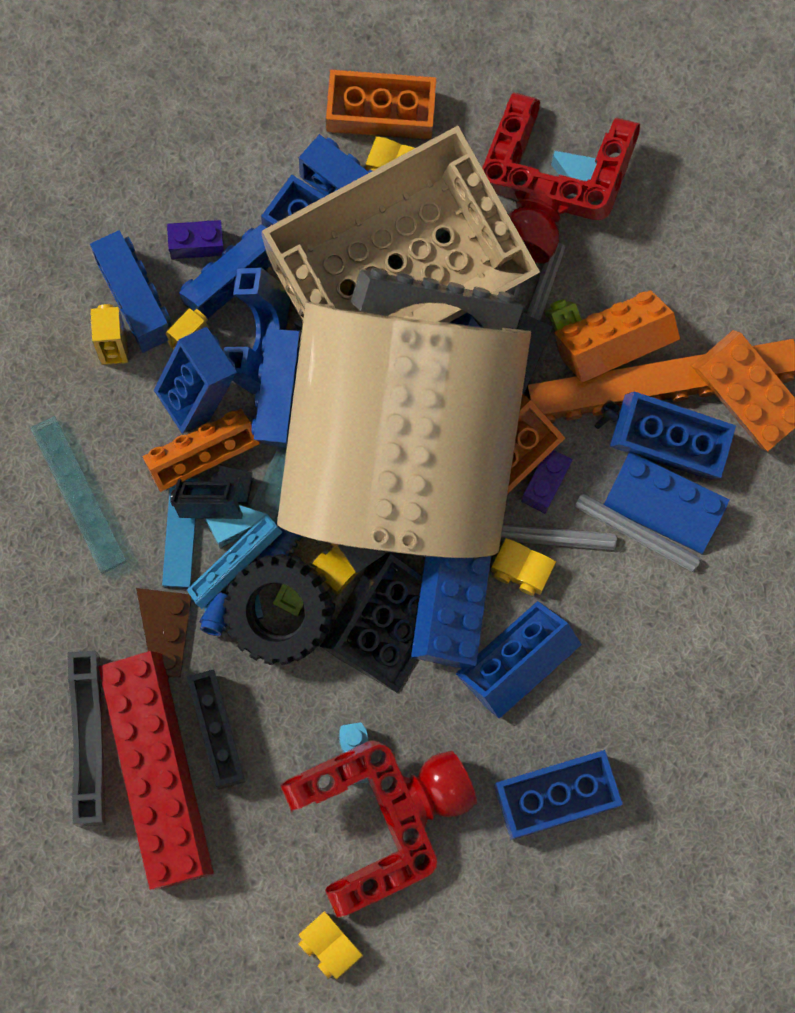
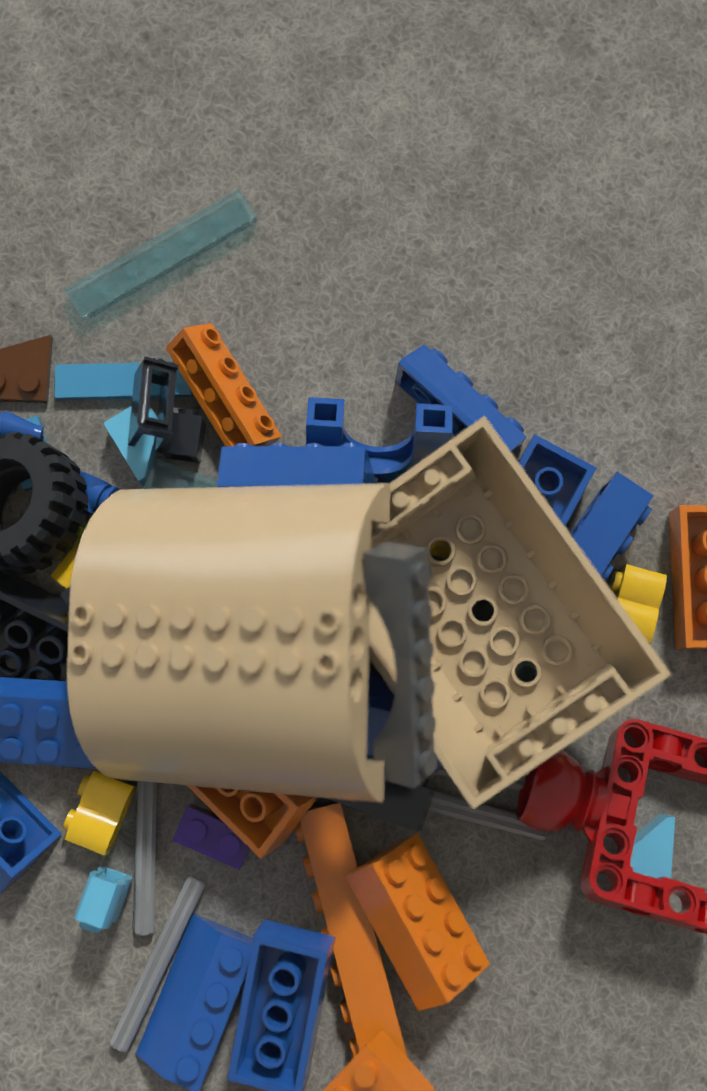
camera: 90 degrees right, 5 degrees up
(109, 334) = (356, 259): yellow brick -> none
(132, 290) = (420, 285): blue brick -> none
(188, 323) = (370, 360): yellow brick -> none
(195, 239) = (500, 359): dark purple brick -> none
(195, 379) = (301, 367): blue brick -> none
(234, 561) = (81, 445): dark azure tile -> none
(563, 313) = (446, 843): lime bracket -> none
(588, 562) = (102, 899): none -> medium azure brick
(609, 411) = (310, 913): black hand -> none

